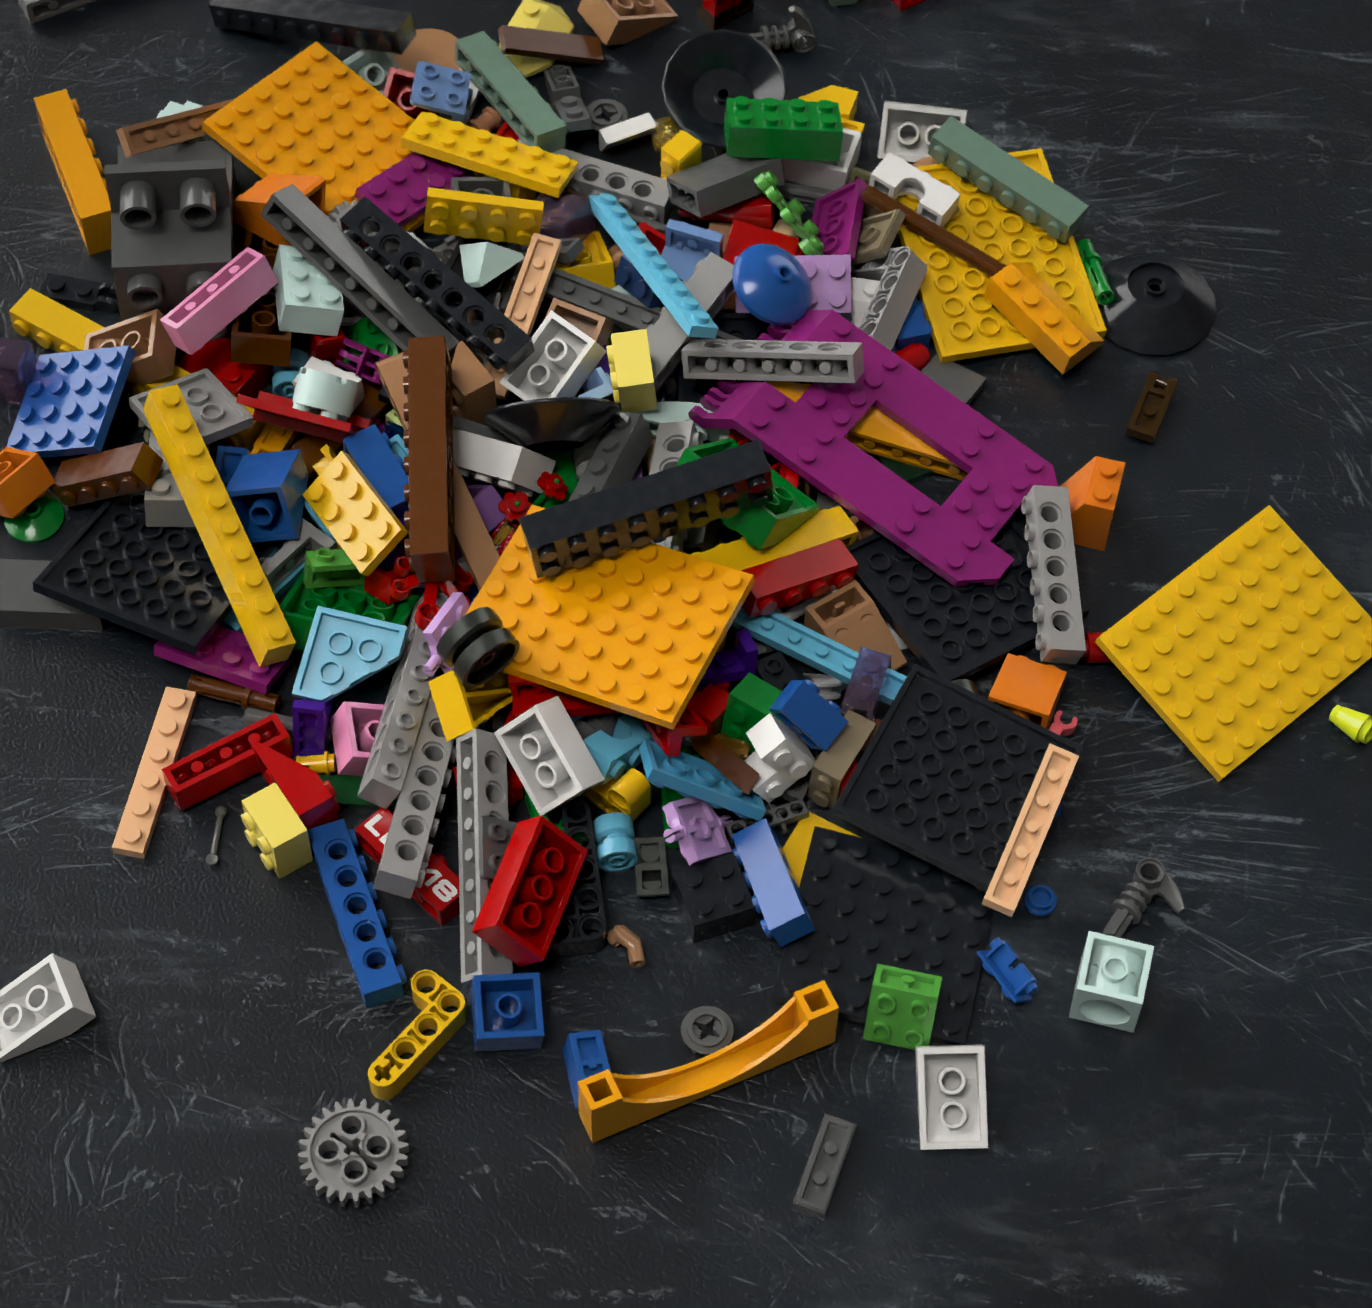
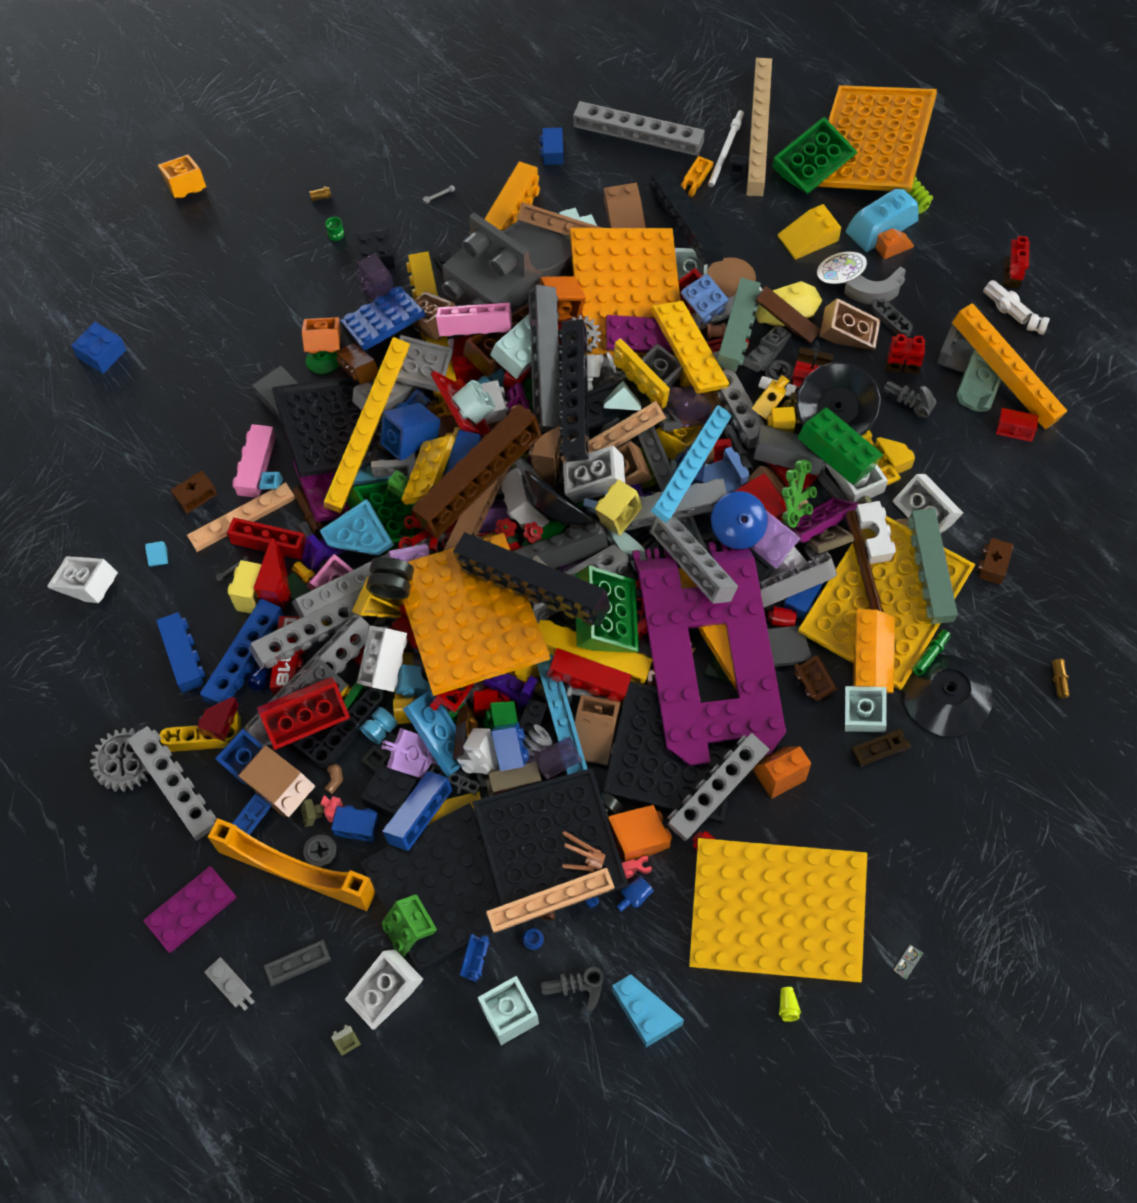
camera: 50 degrees right, 5 degrees up
(36, 61) = (552, 146): none -> blue brick
(59, 792) = (194, 492): none -> reddish brown brick
(96, 694) = (254, 460): none -> bright pink brick
(98, 901) = (156, 553): none -> medium azure slope
(146, 698) = (270, 480): none -> medium azure slope
(213, 68) = (624, 206): none -> medium nougat slope
(274, 977) = (180, 652): none -> blue brick
(406, 918) = (259, 678): none -> clear blue cone
(430, 996) = (218, 719): none -> dark red slope
(438, 1124) = (140, 743): none -> light grey brick
(580, 997) = (276, 781): none -> medium nougat slope
(634, 1231) = (189, 909): none -> magenta plate
(636, 85) = (804, 364): none -> hips
(639, 141) = (768, 400): none -> yellow torso
(648, 1001) = (310, 812): none -> olive tile
(670, 971) = (330, 807): none -> coral plate
(714, 964) = (355, 823): none -> blue brick
(778, 1259) = (229, 983): none -> light grey hinge
(976, 1183) = (345, 1040): none -> olive tile
(1013, 392) = (816, 678): none -> reddish brown bracket
(1023, 748) = (594, 857): none -> nougat plant
(1051, 131) = (995, 570): none -> reddish brown brick
(1090, 762) = (635, 894): none -> blue piece
(1098, 378) = (865, 709): none -> light aqua brick
(1232, 857) = (645, 1010): none -> medium azure wedge
(1236, 197) = (1060, 678): none -> pearl gold axle

